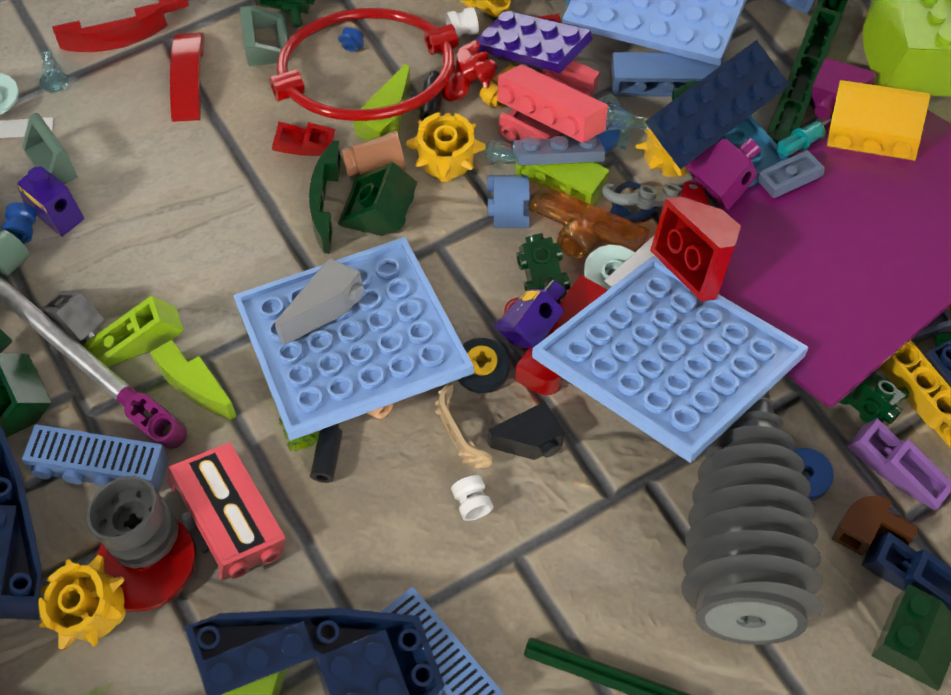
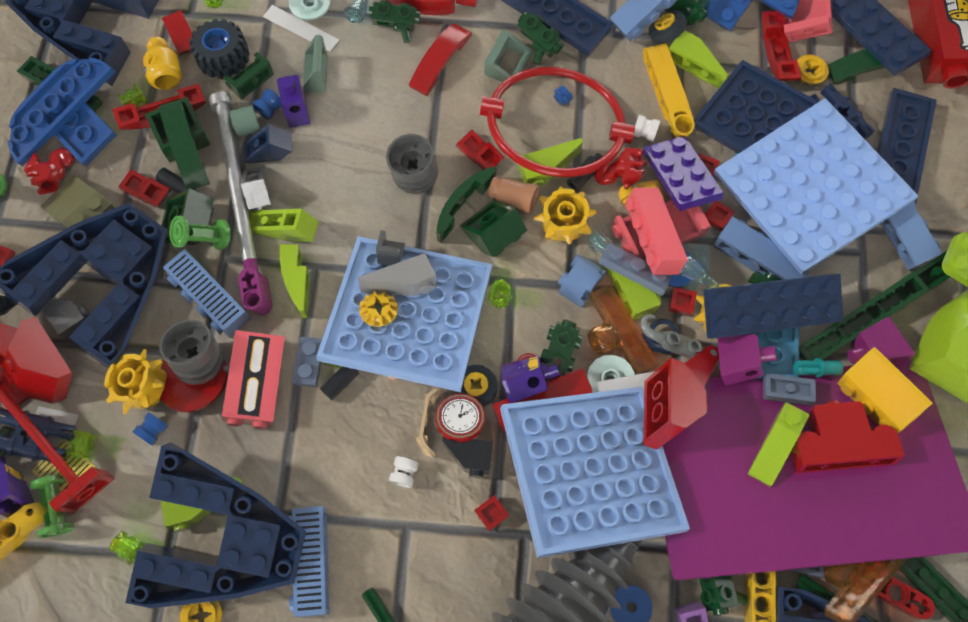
camera: 35 degrees right, 10 degrees up
(22, 400) = (218, 233): none -> bright green hose
(52, 264) = (268, 145): none -> dark blue slope
(108, 56) = (400, 17): none -> dark green brick
(137, 646) = (150, 428): none -> blue wheel
(241, 186) = (412, 163): none -> dark grey wheel
(274, 458) = (306, 365): none -> sand blue plate
(284, 285) = (389, 251): none -> dark grey panel
(319, 355) = (371, 316): none -> yellow gear
(436, 260) = (500, 301): none -> clear neon green bush
(492, 399) = (460, 417): none -> tile
(597, 477) = (491, 513): none -> red plate
(598, 60) = (718, 215): none -> red plate
(625, 159) = (682, 301): none -> red plate
(822, 223) = (778, 444): none -> lime slope
(876, 184) = (843, 439): none -> red brick

